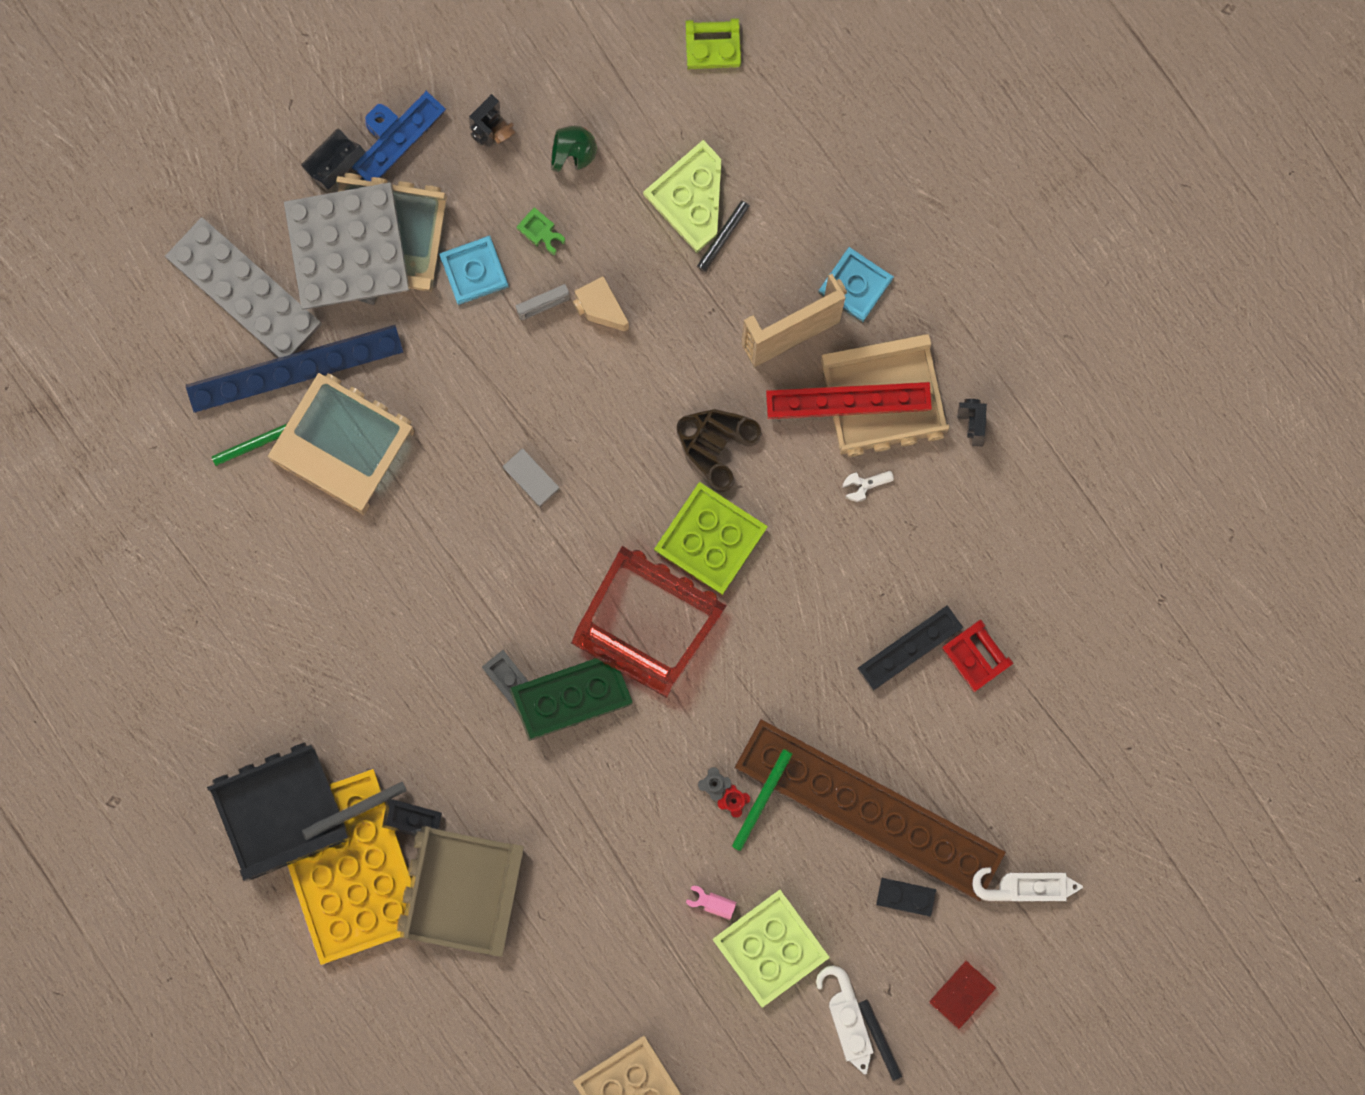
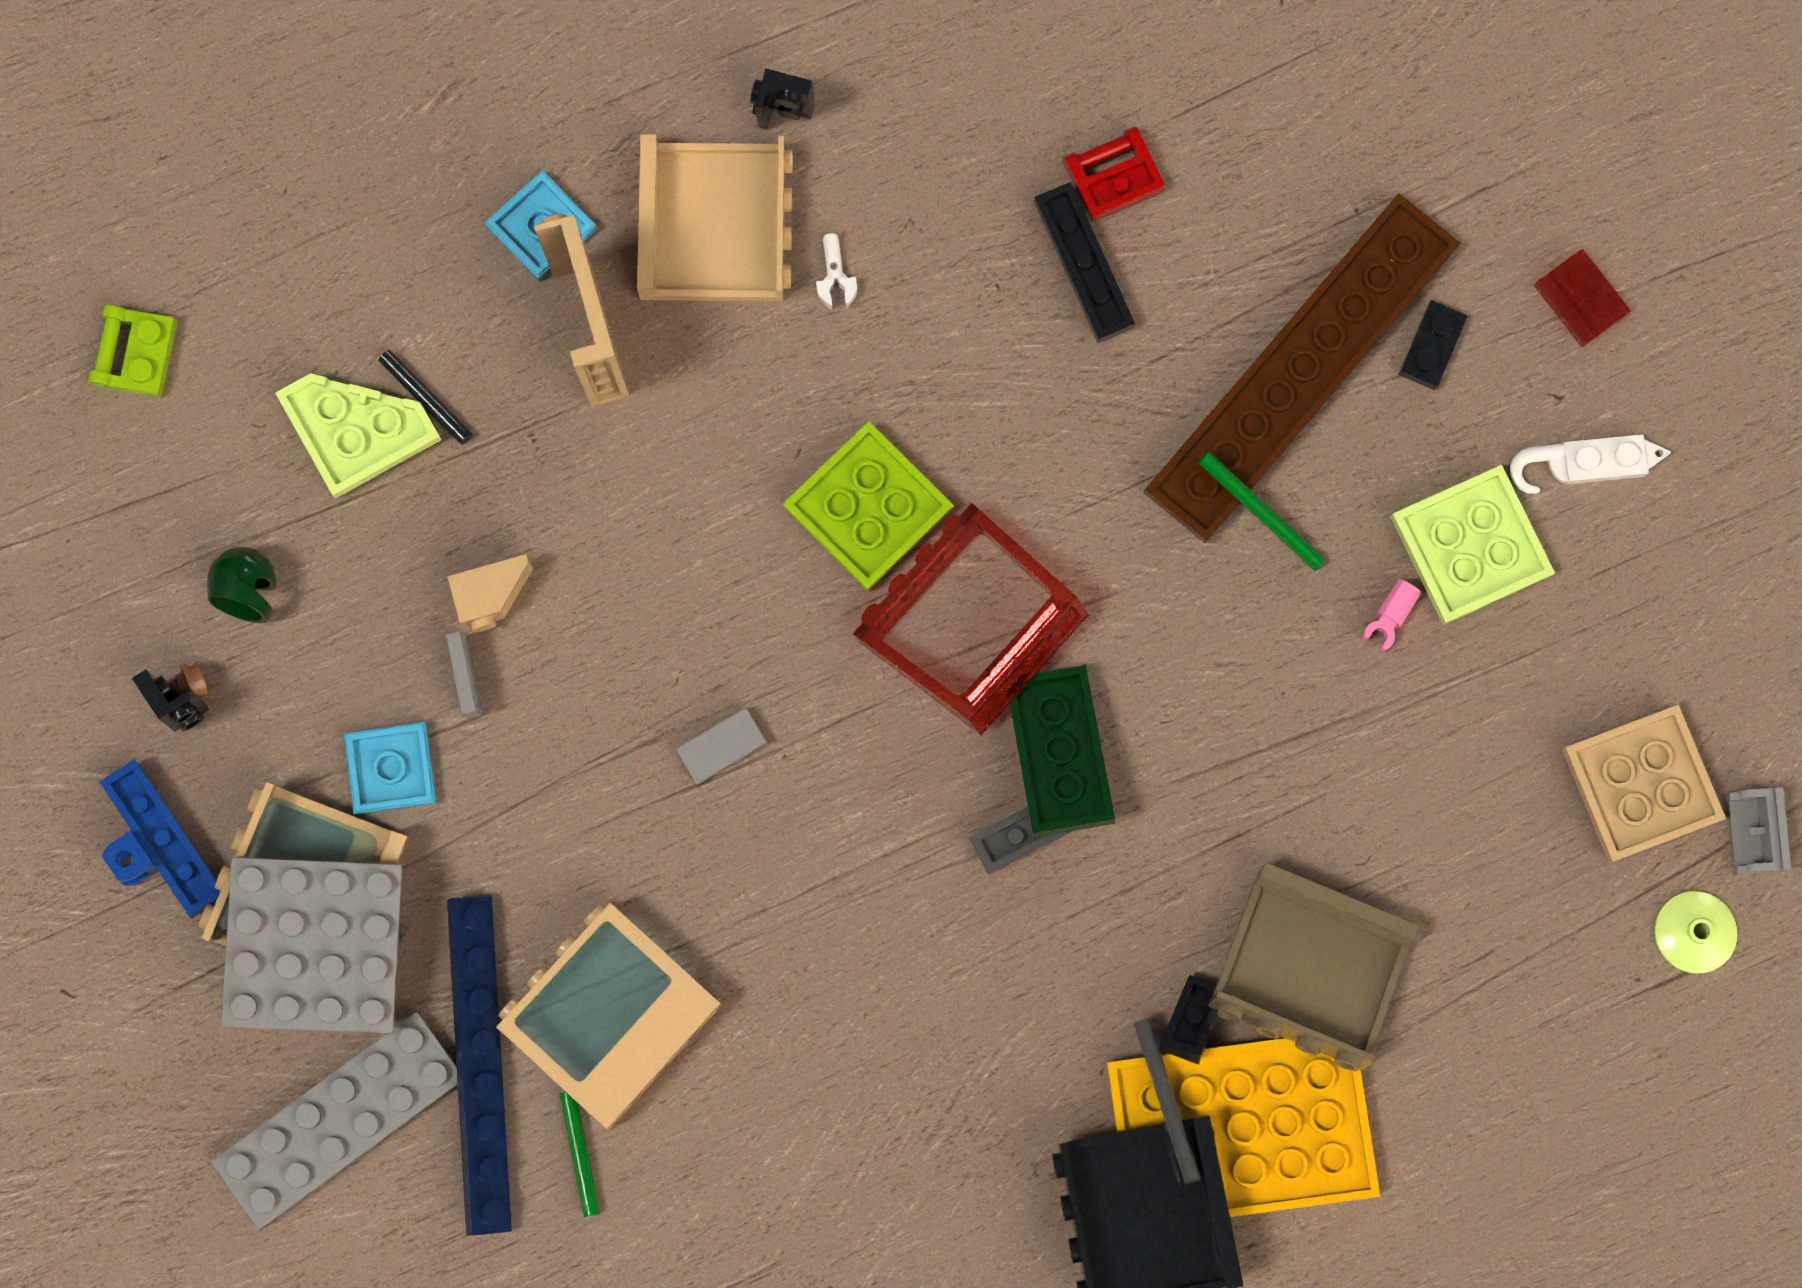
camera: 80 degrees left, 0 degrees up
(332, 159) = (171, 943): black bracket -> none
(538, 229) = (350, 660): bright green plate -> none
(722, 784) = (1221, 586): dark grey plate -> none
(724, 423) = (754, 492): dark brown connector -> none
(733, 793) = (1264, 553): red plate -> none
(848, 400) = (711, 268): red plate -> none
(880, 1040) = (1625, 422): black bar -> none
(1027, 887) = (1452, 174): white plate -> none

